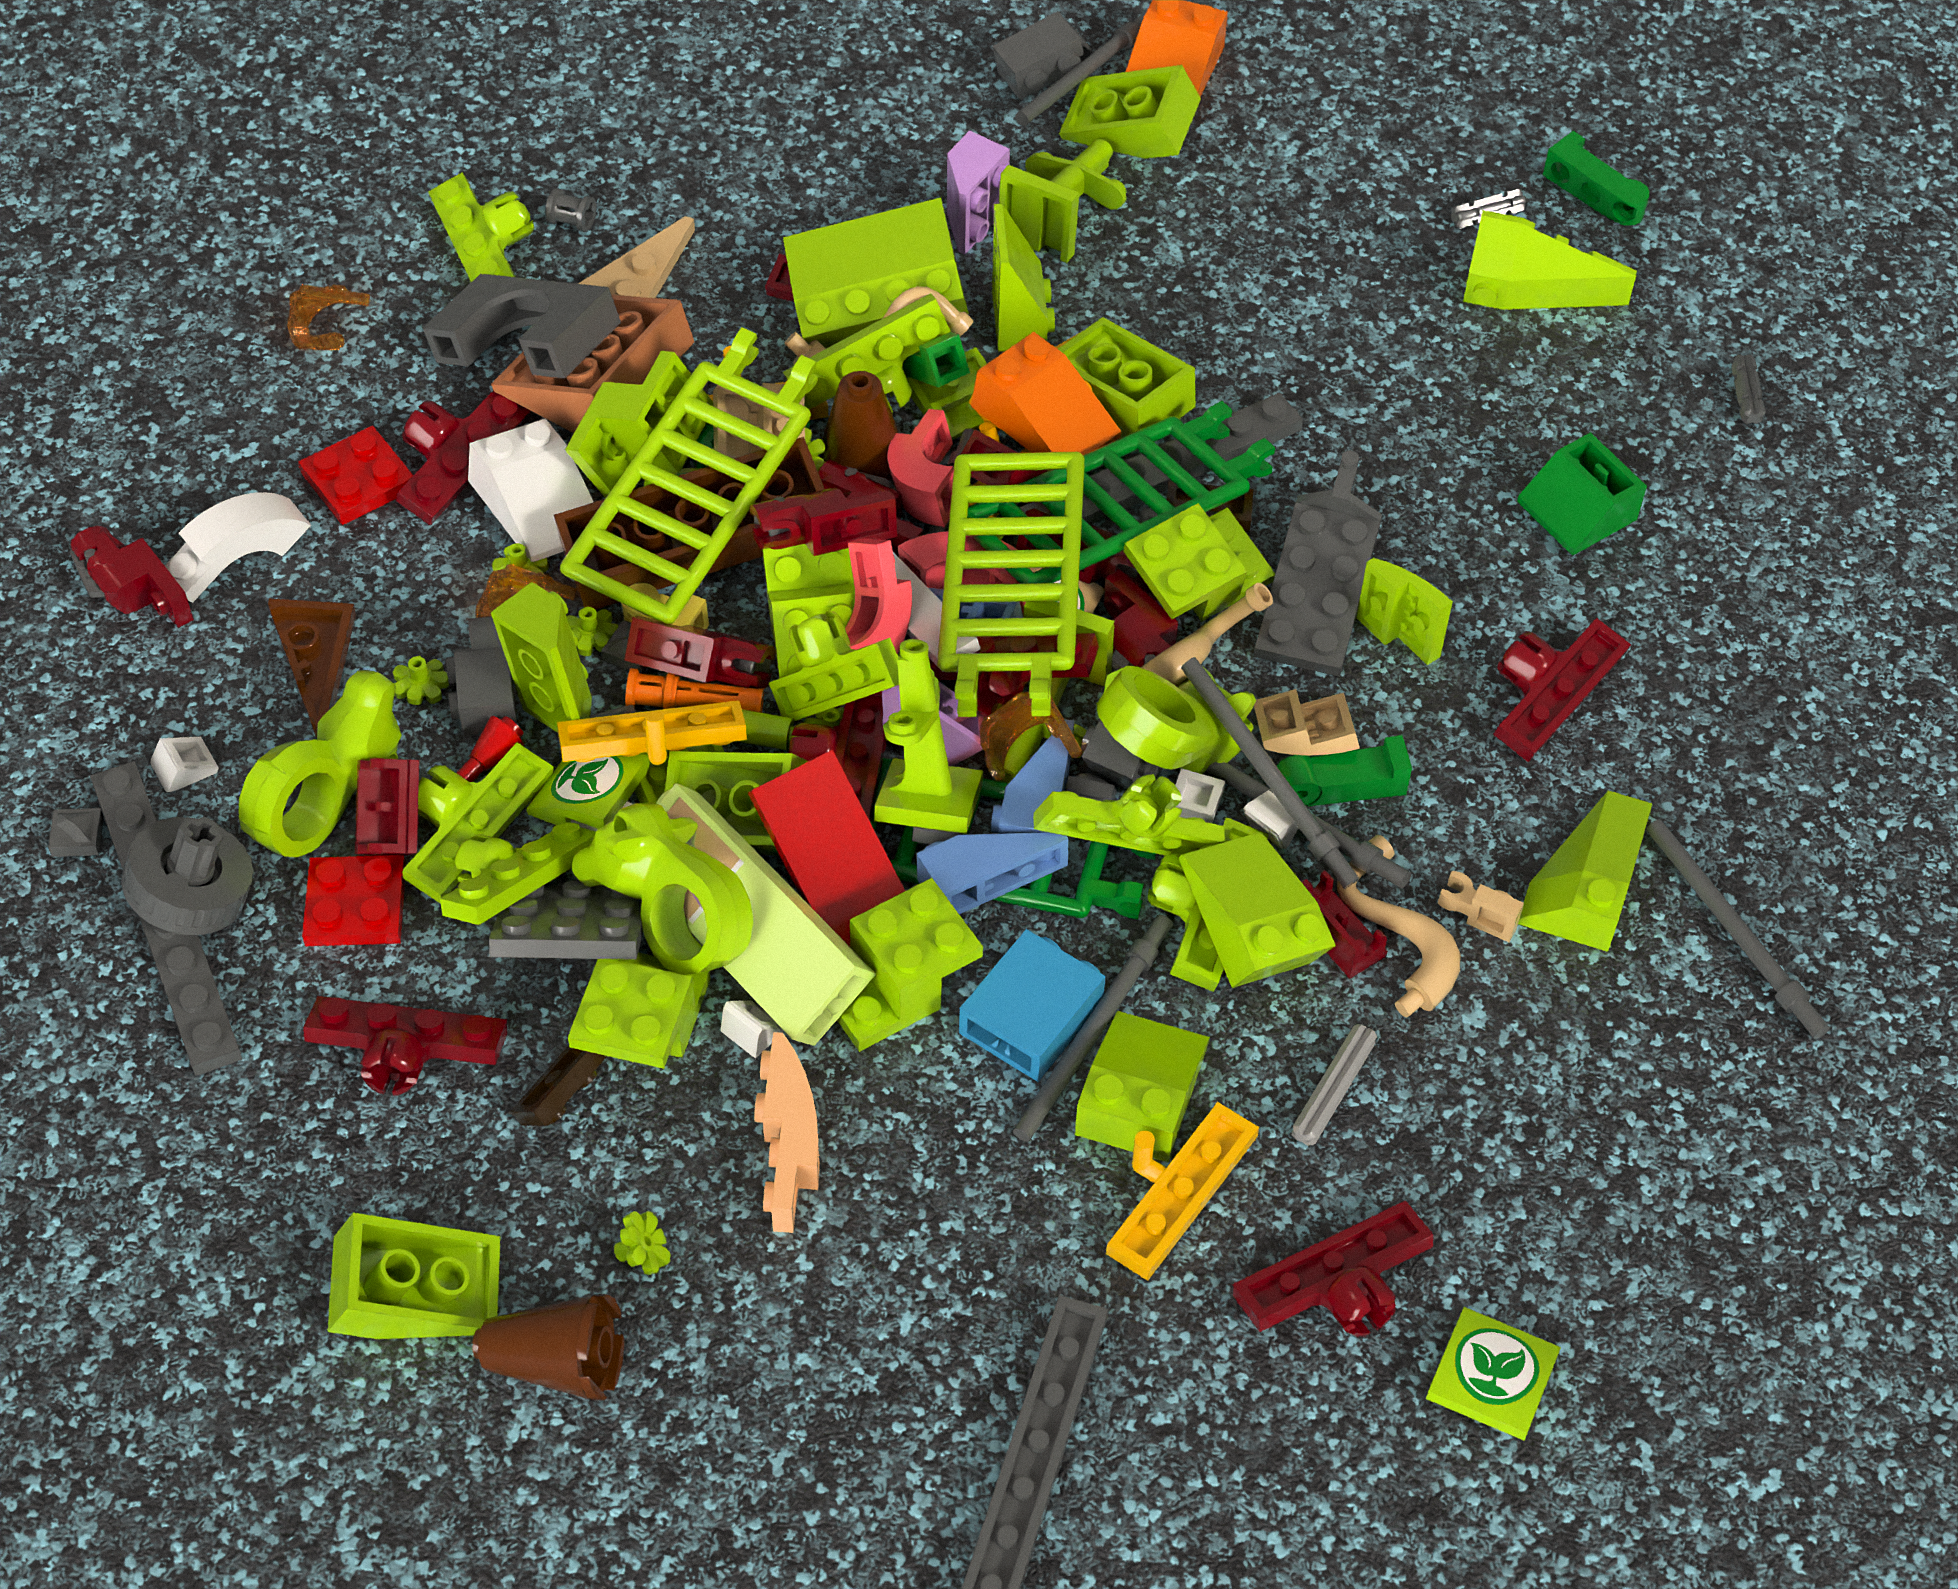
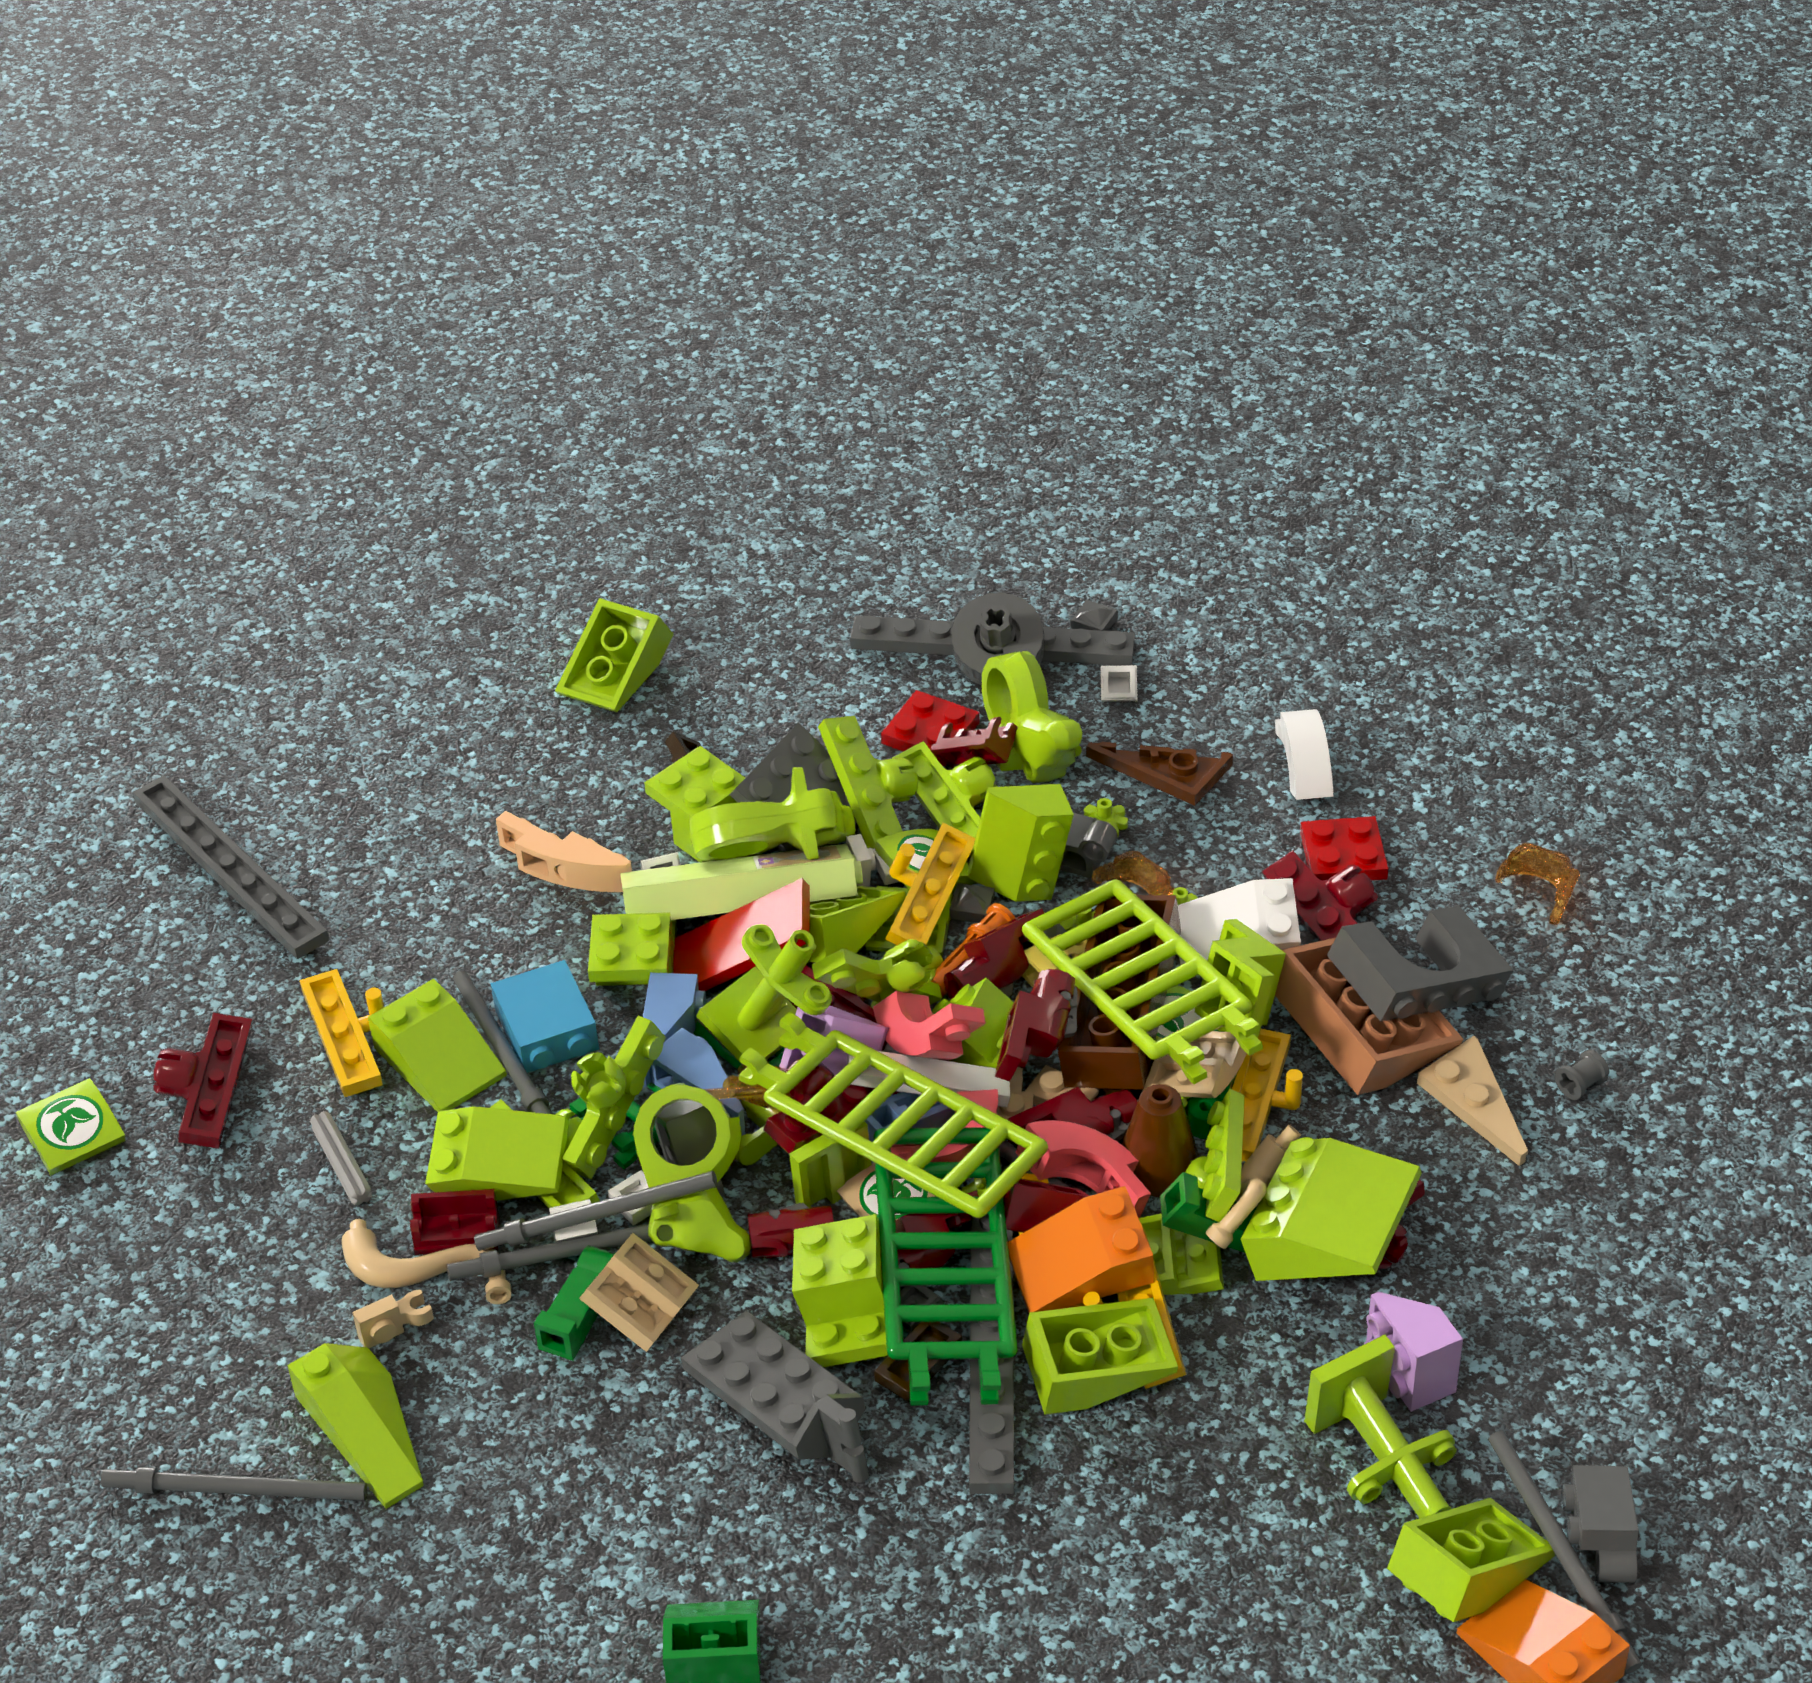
camera: 125 degrees right, 10 degrees down
(127, 575) = (1311, 690): dark red plate -> none
(403, 1038) = (793, 703): dark red plate -> none
(478, 230) = (1585, 1009): lime plate -> none
(556, 1346) = (504, 695): reddish brown cone -> none
(642, 1243) = (545, 761): lime plant -> none
(1017, 285) = (1254, 1308): lime slope -> none
(1200, 642) = (744, 1208): tan animal -> none
(1404, 607) = (686, 1409): lime slope -> none
(1553, 683) = (544, 1496): dark red plate -> none

